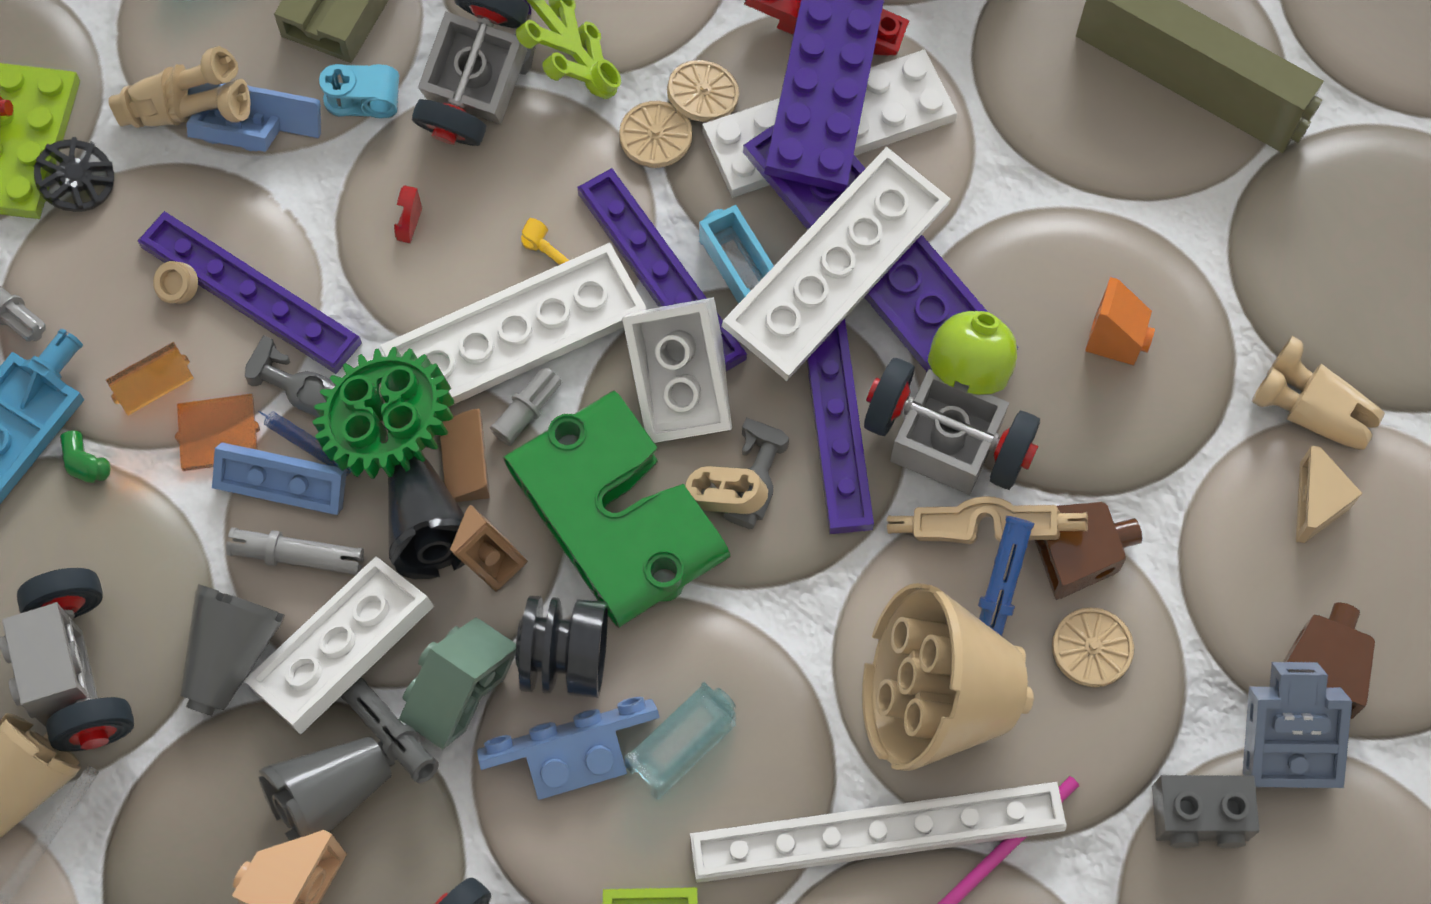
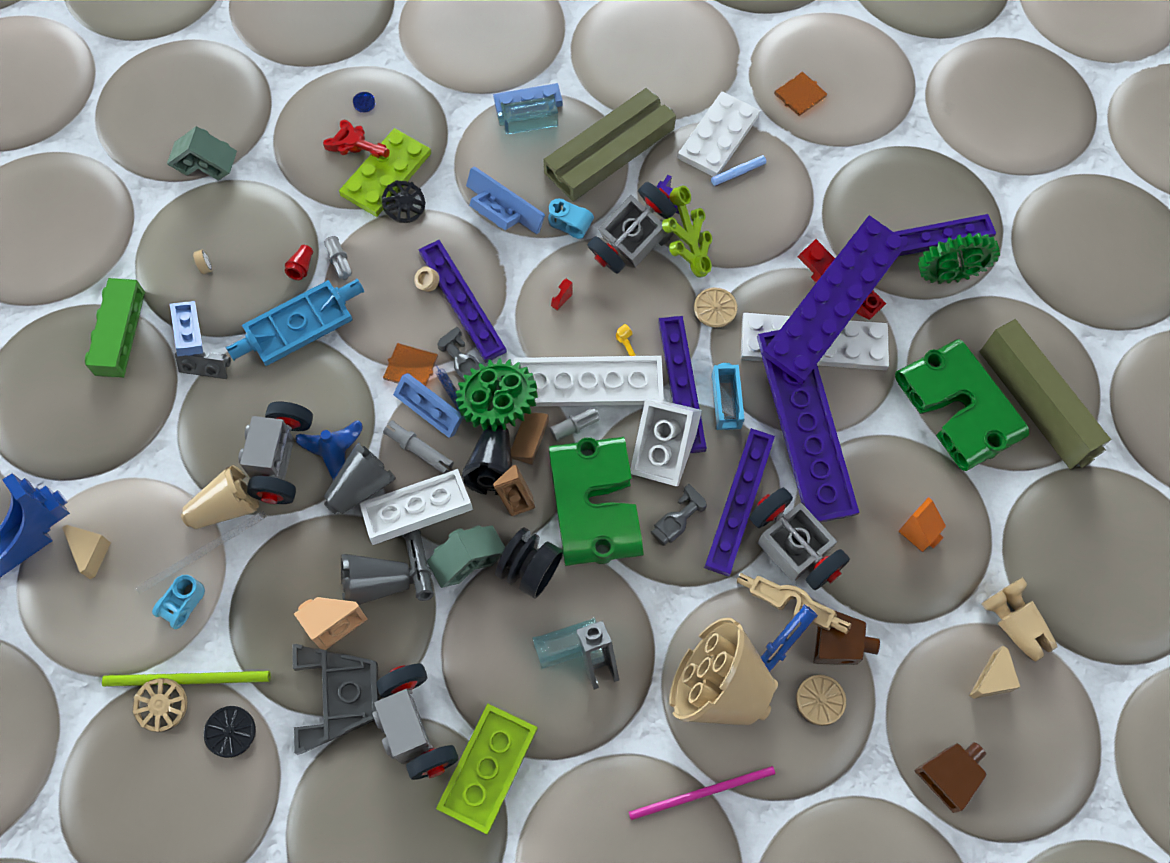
camera: 25 degrees right, 0 degrees up
(80, 463) = (334, 352): green arm -> none
(150, 378) = (388, 324): clear orange piece -> none
(151, 613) = (331, 445): none -> blue piece
(165, 96) = (467, 179): tan piece -> none
(573, 752) = (508, 621): medium blue bracket -> none
(702, 90) = (752, 294): tan wheel -> none
(728, 482) = (661, 514): tan beam -> none
(736, 728) = (597, 651): none -> dark grey window
(835, 263) = (778, 420): white plate -> none
(877, 832) = (651, 745): white tile -> none
(974, 351) = (830, 504): lime cylinder -> none
(1074, 86) = (986, 411): none -> green connector
(1205, 810) = (840, 823): dark grey brick -> none
(1297, 729) = (914, 804): sand blue piece -> none

